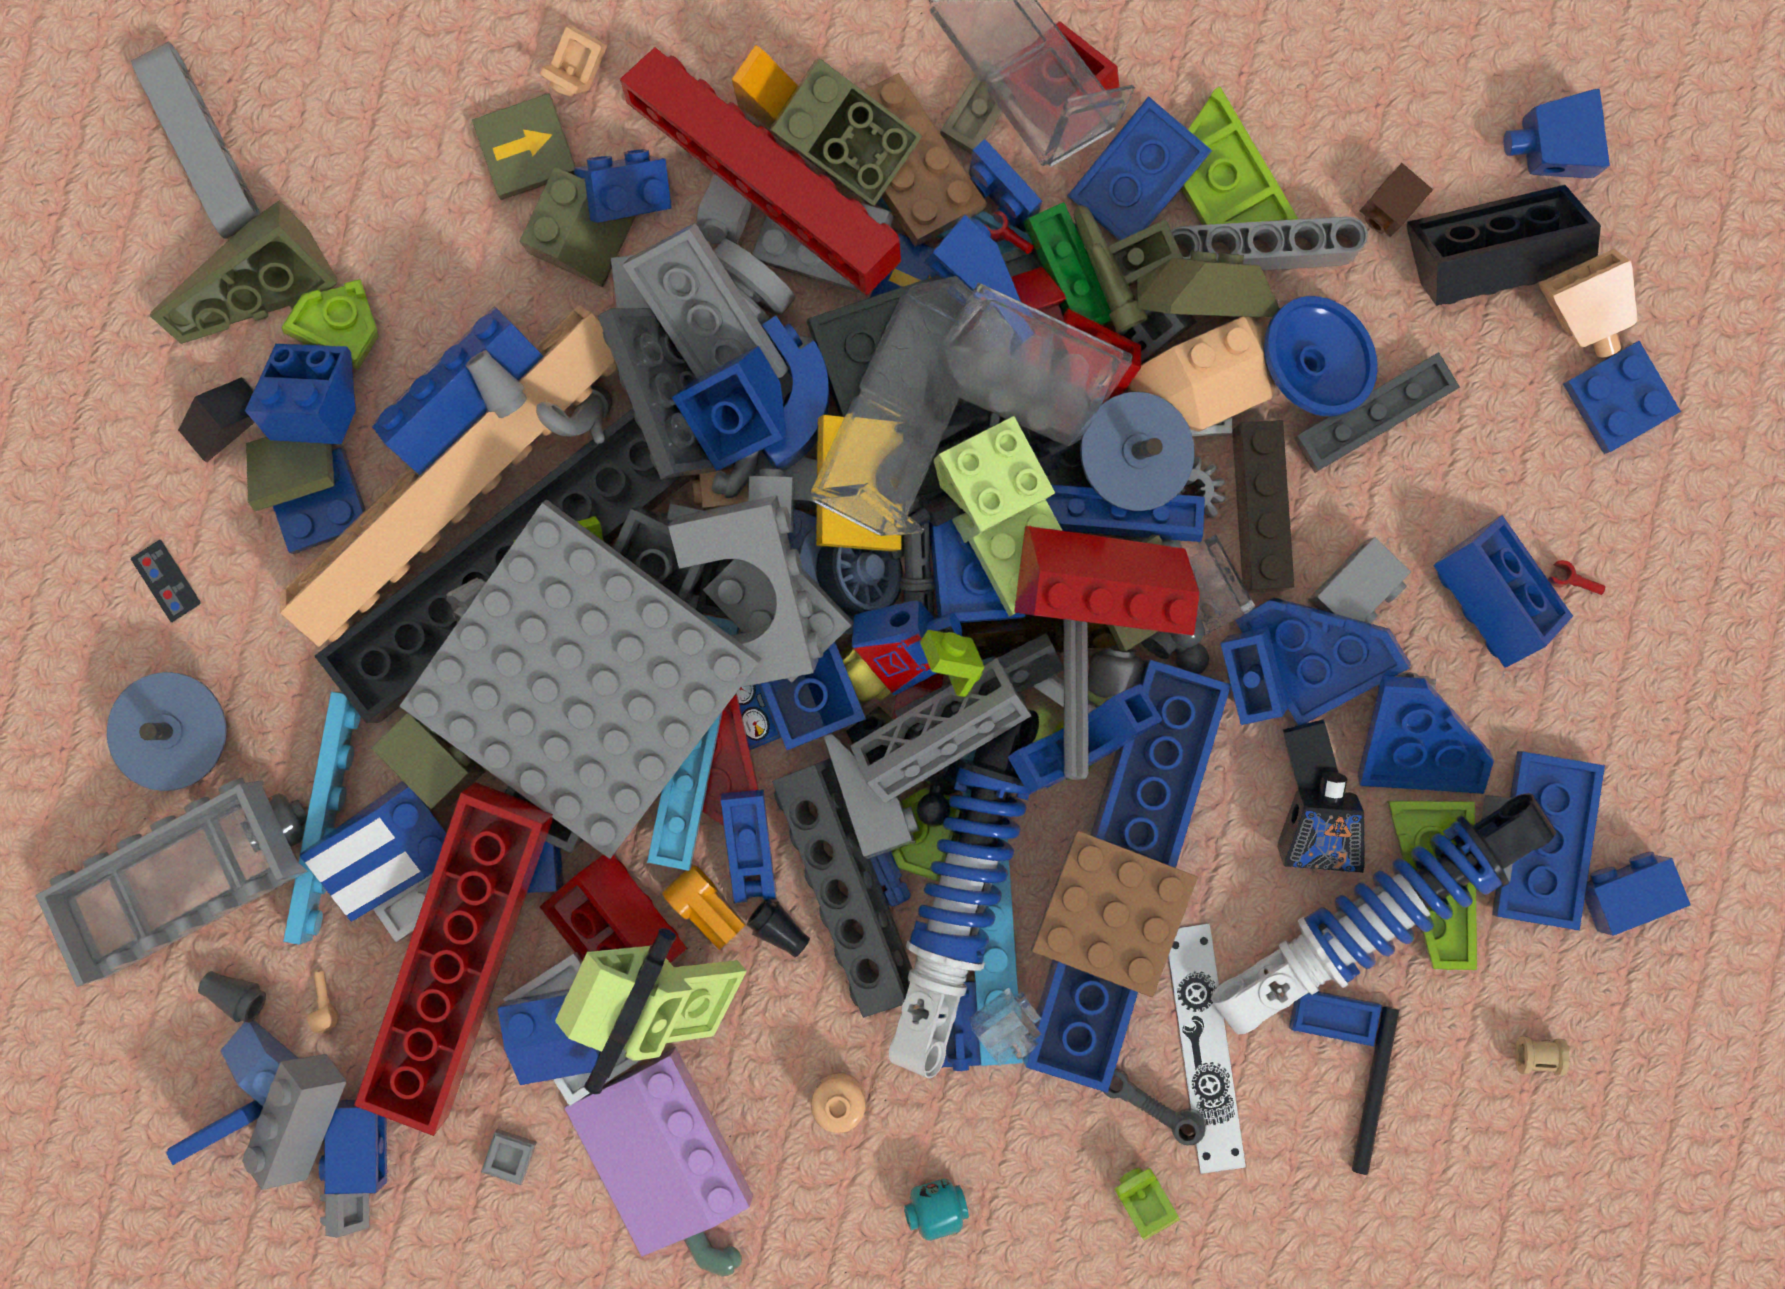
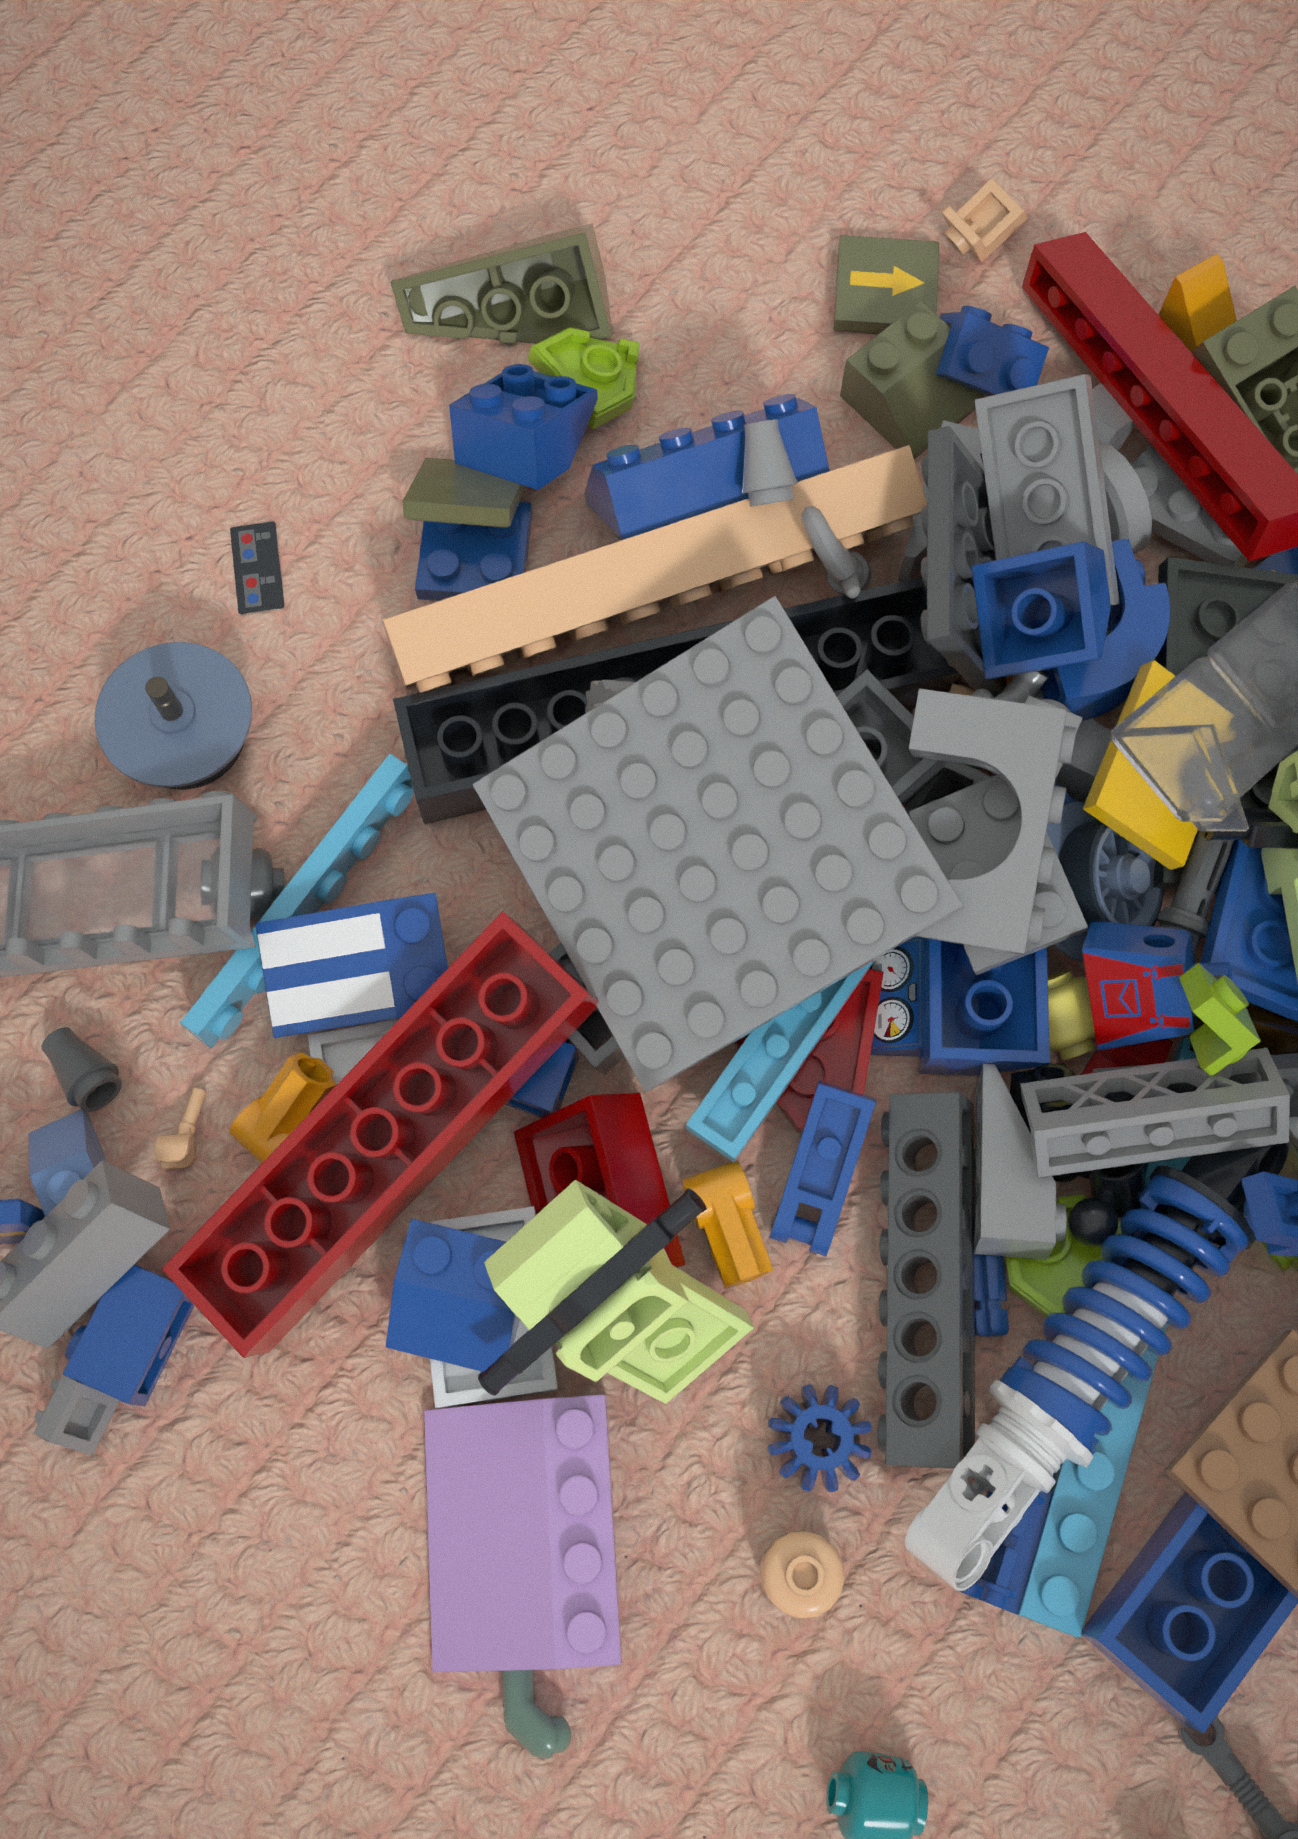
camera: 30 degrees right, 15 degrees down
(195, 139) = (528, 139): light grey beam -> none
(217, 418) = (406, 419): black slope -> none
(381, 963) = (285, 1104): none -> light orange piece
(427, 762) = (468, 871): olive brick -> none
(508, 1157) = (320, 1444): light grey tile -> none
(776, 927) = (813, 1294): black cone -> none
(807, 1026) = (837, 1427): none -> blue gear
(1007, 1026) = (1096, 1564): clear brick -> none

